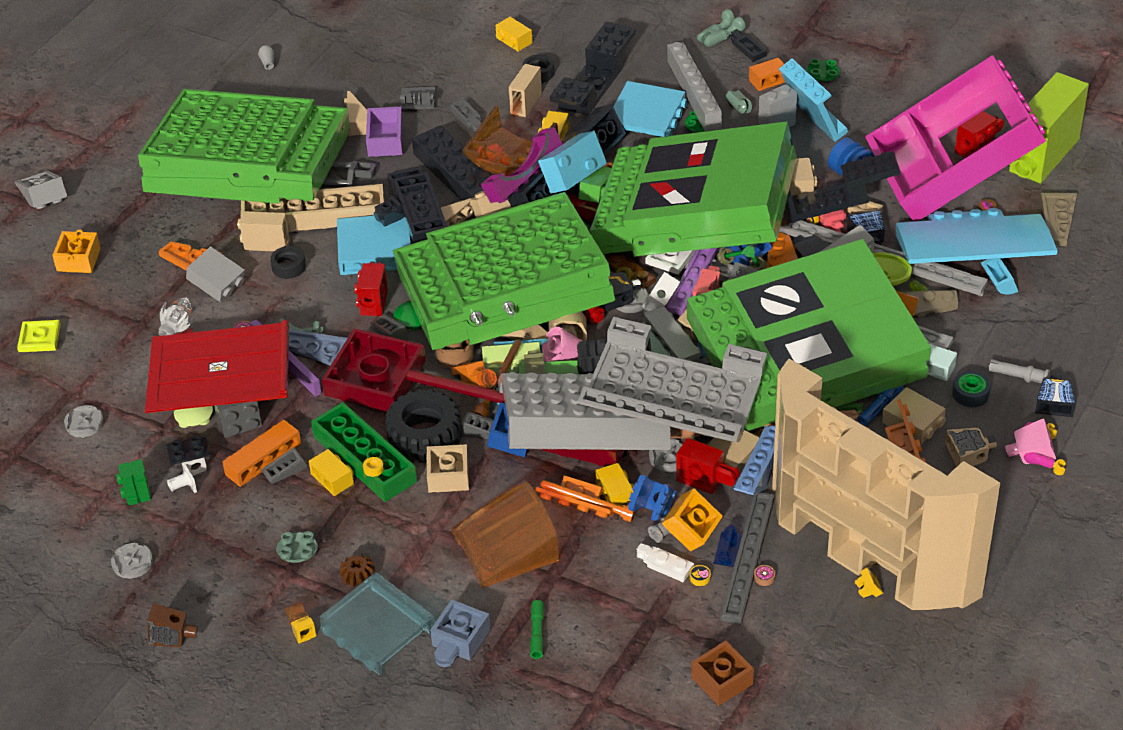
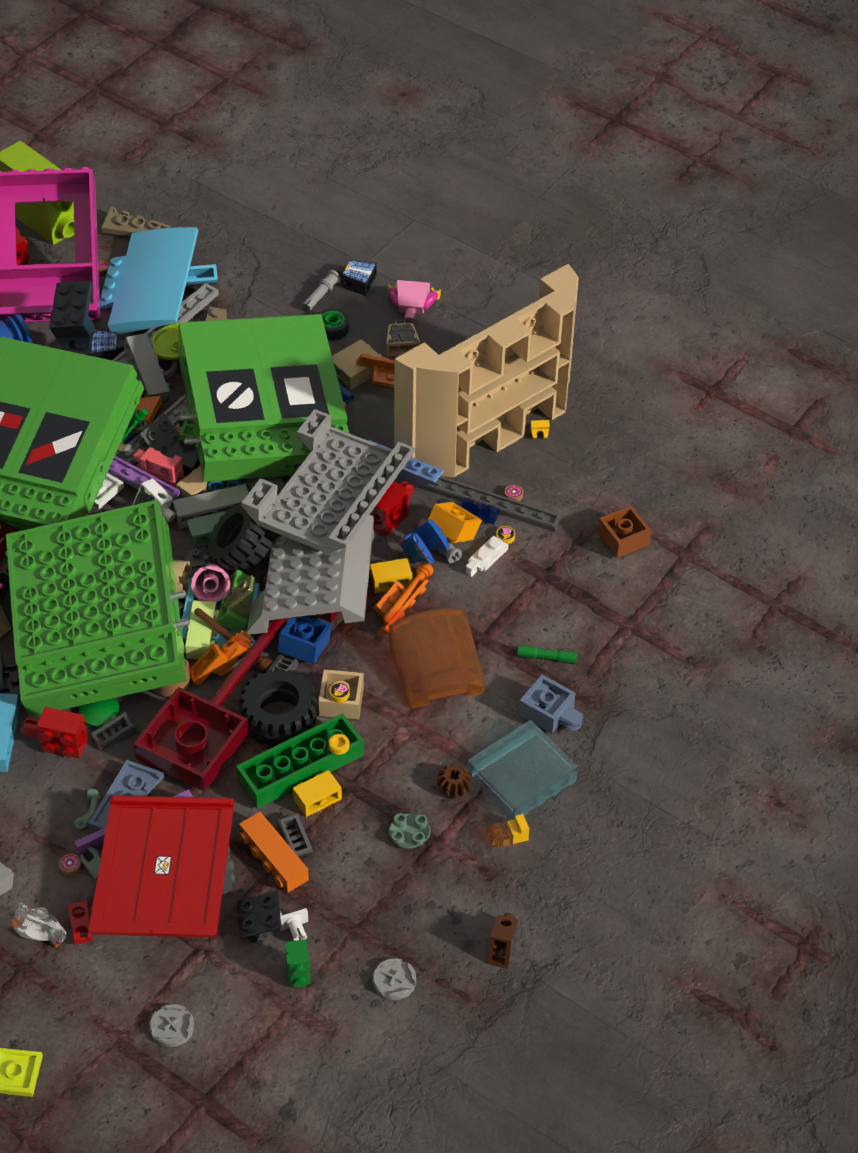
camera: 85 degrees left, 5 degrees up
(436, 457) = (339, 692): none -> tile

